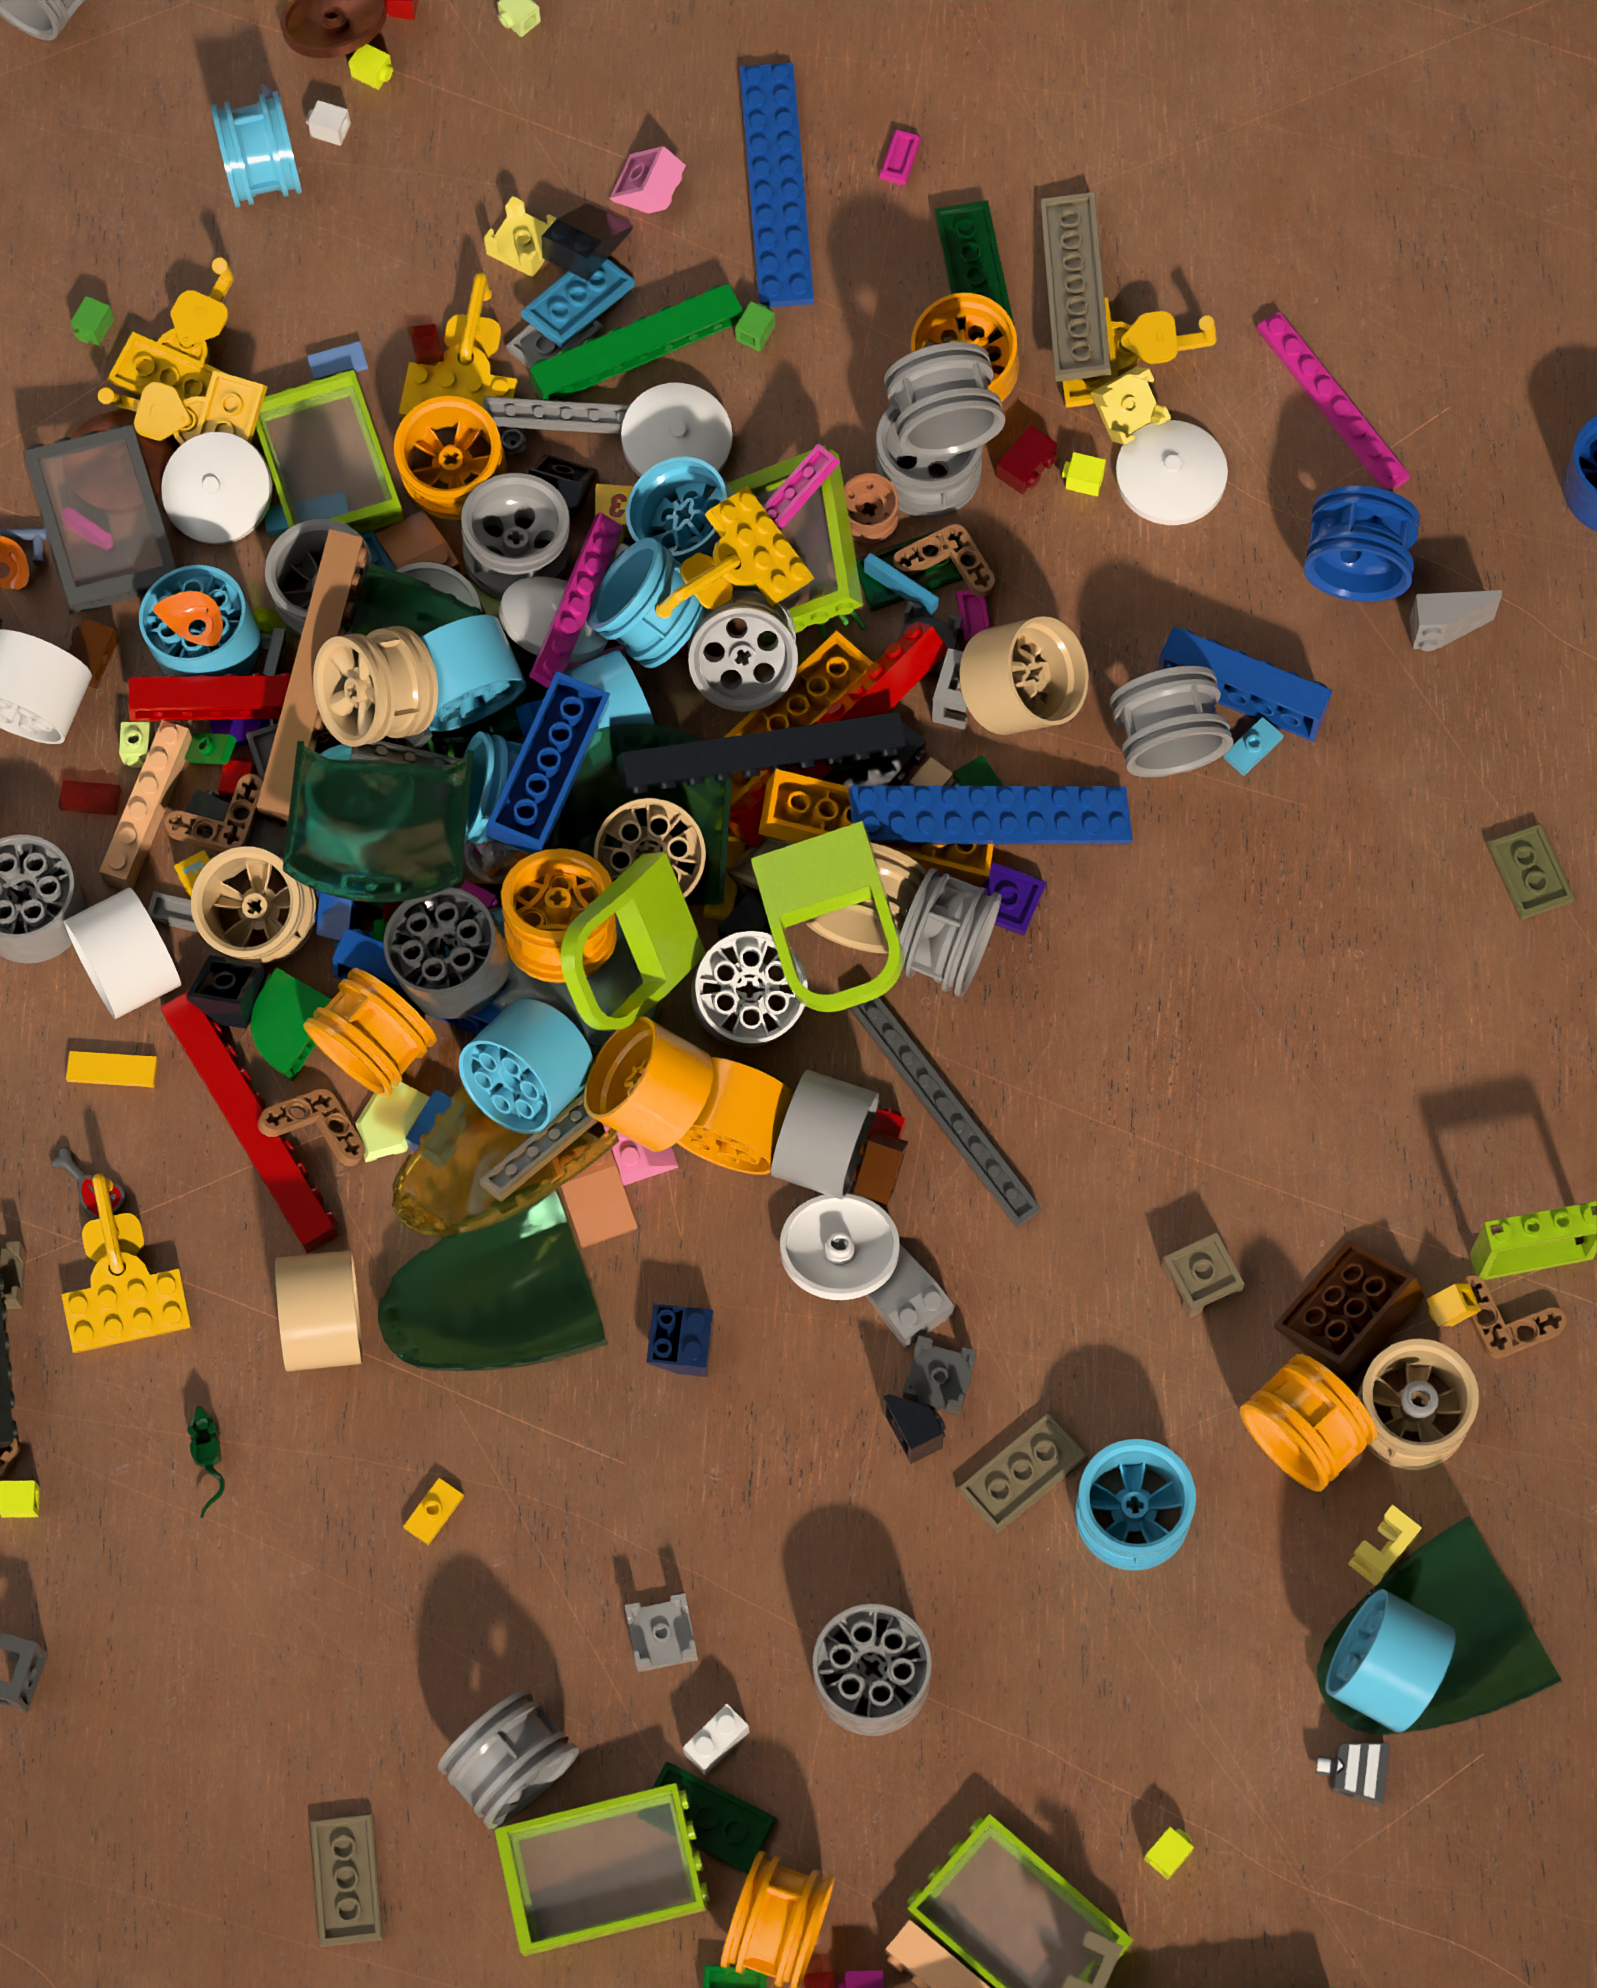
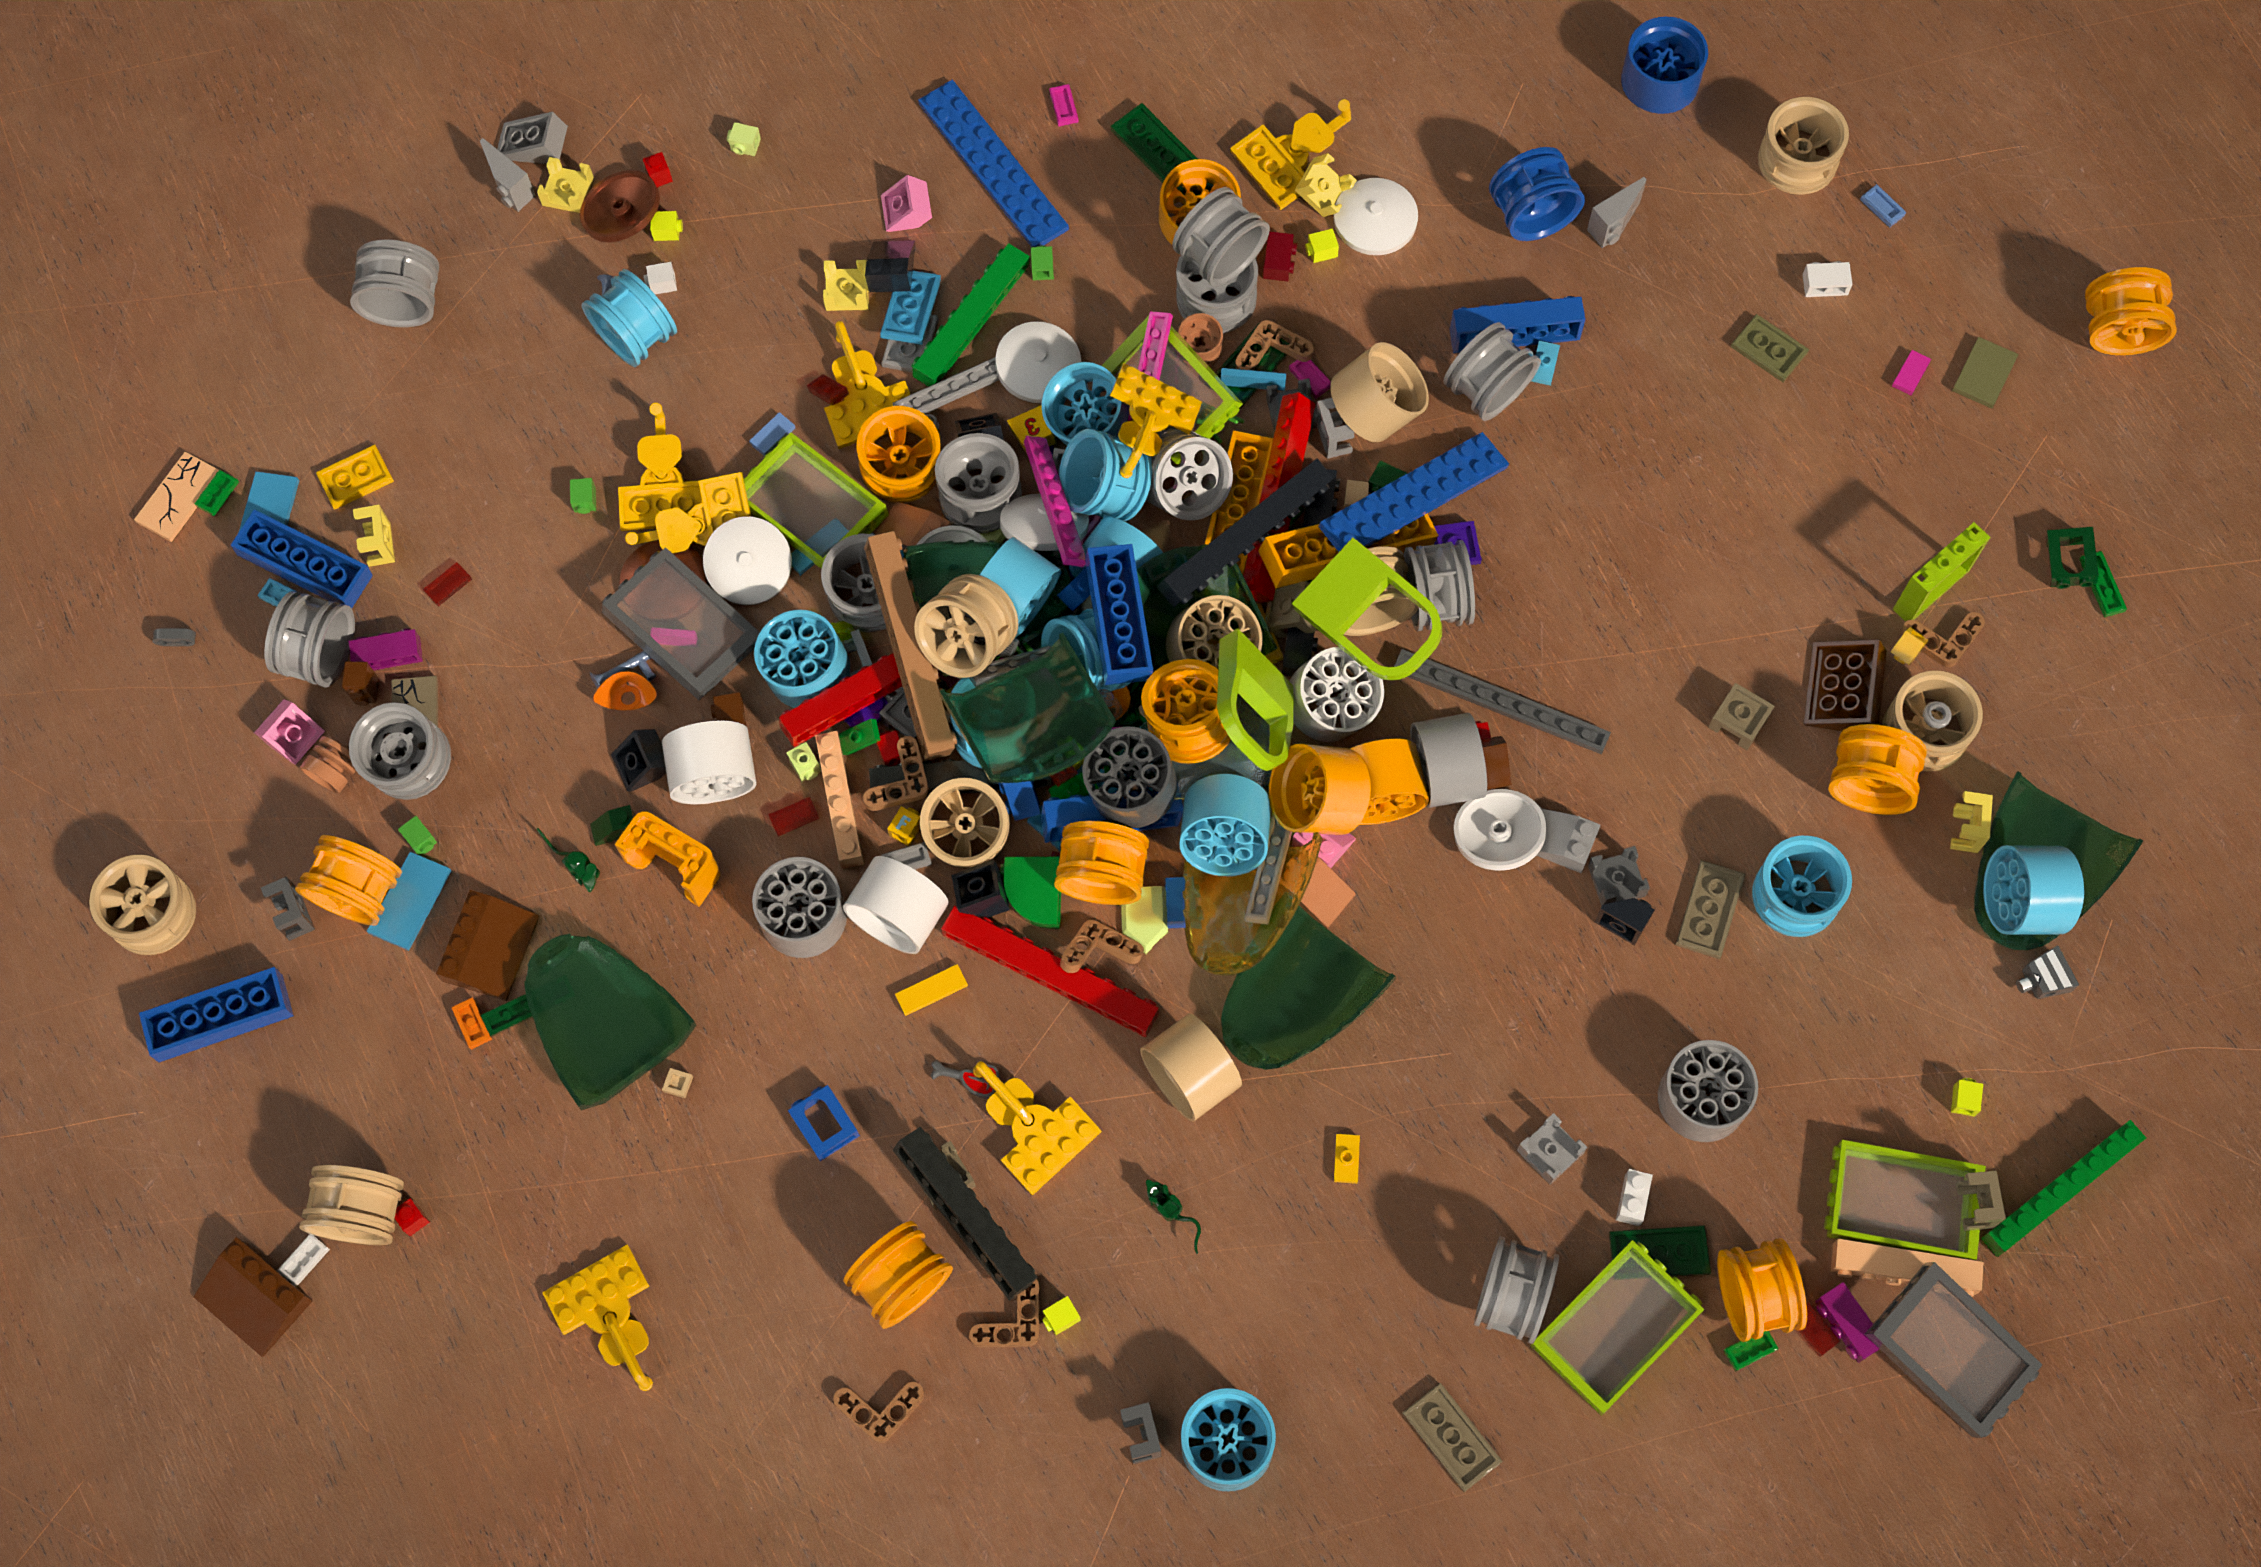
camera: 30 degrees left, 0 degrees up
(74, 1695) = (1227, 1401): none -> medium azure wheel
(184, 608) = (789, 649): orange piece -> none
(680, 1339) = (1438, 949): dark blue slope -> none
(1075, 287) = (1239, 128): dark tan plate -> none
(1333, 402) = (1448, 117): dark pink plate -> none

